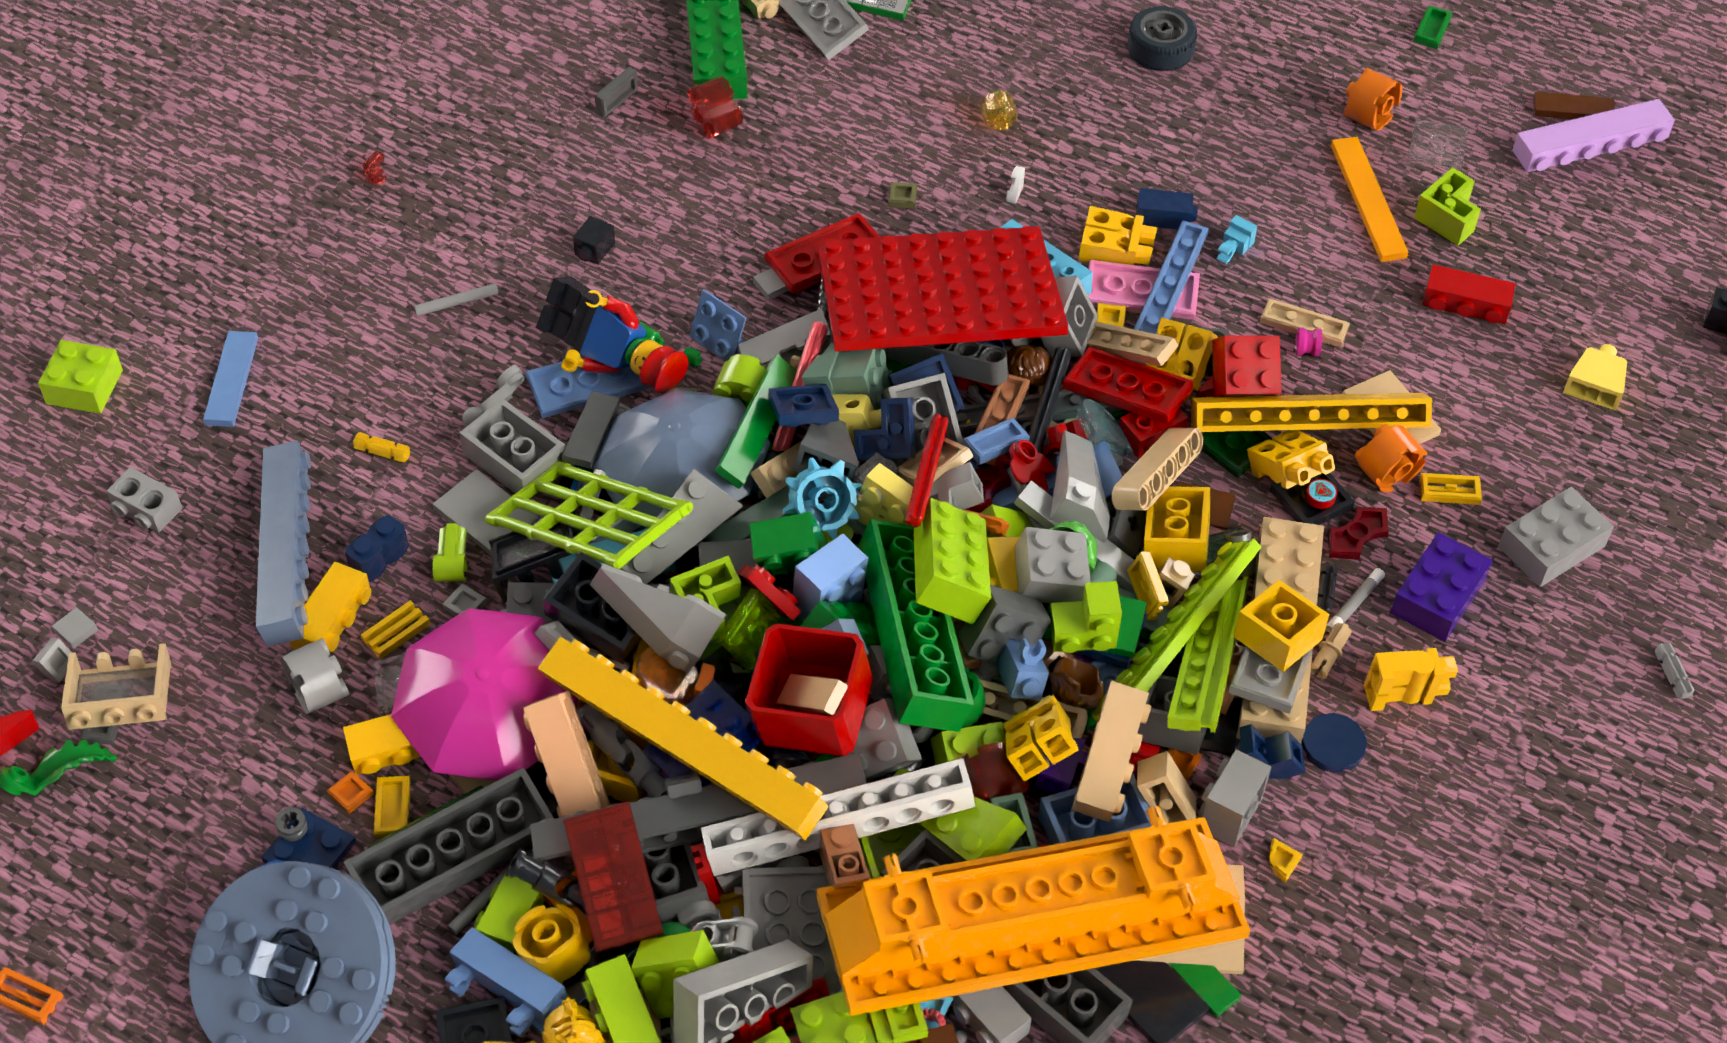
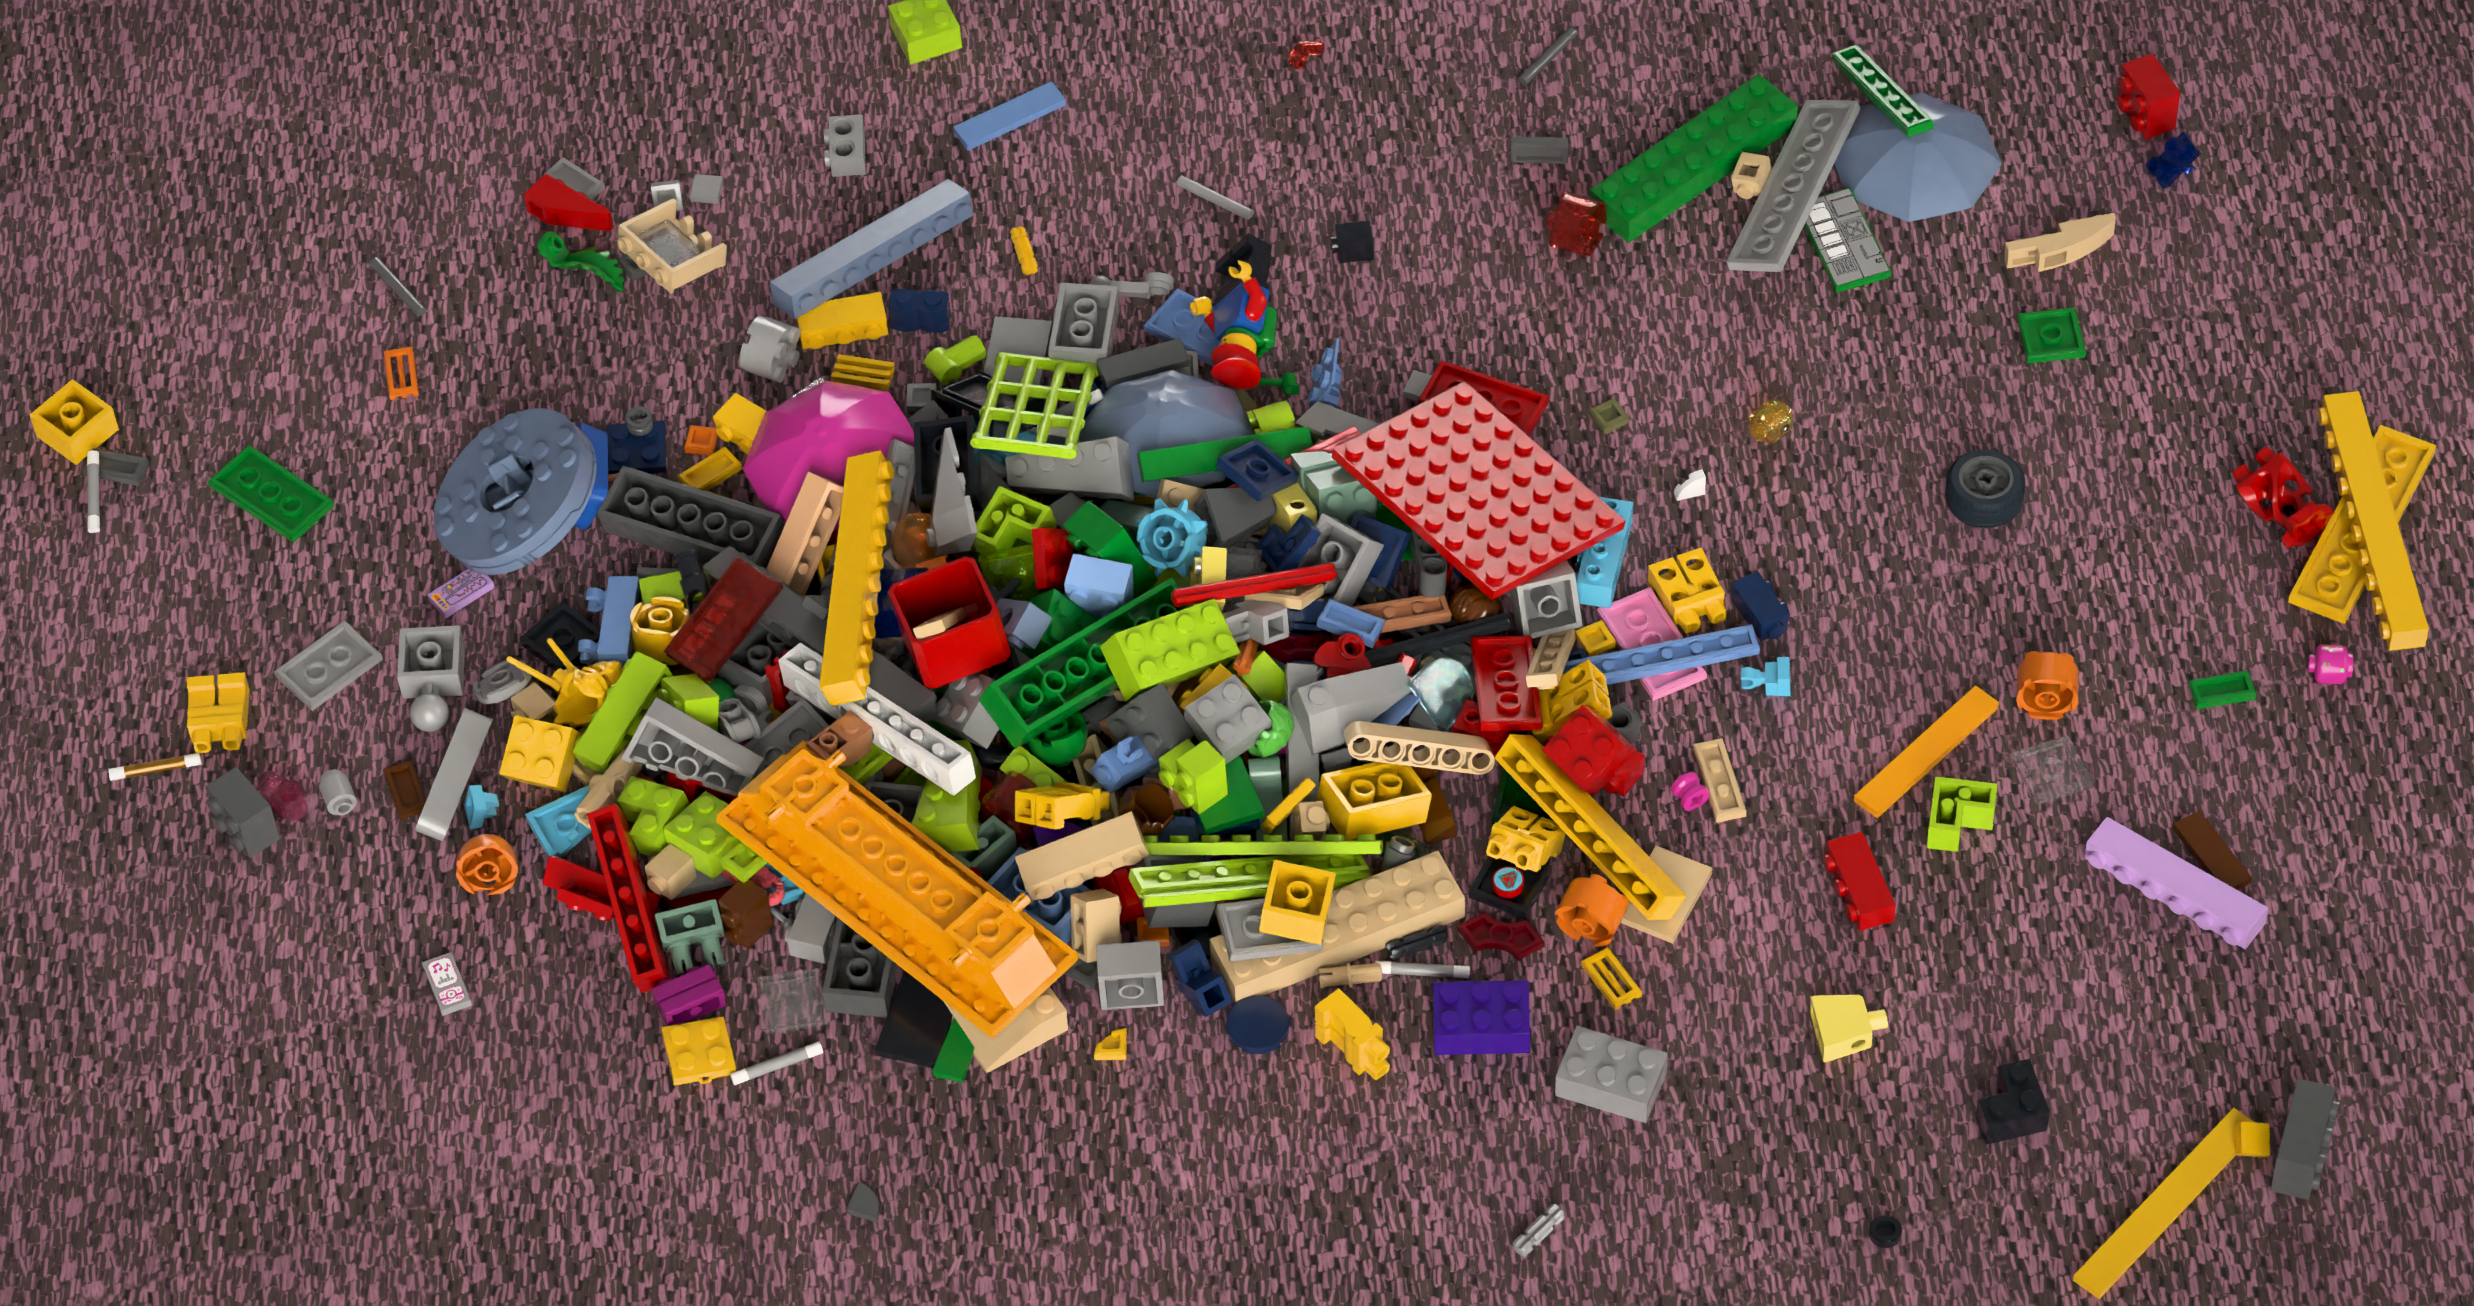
camera: 60 degrees right, 0 degrees up
(527, 43) = (1548, 56): none -> dark grey bar

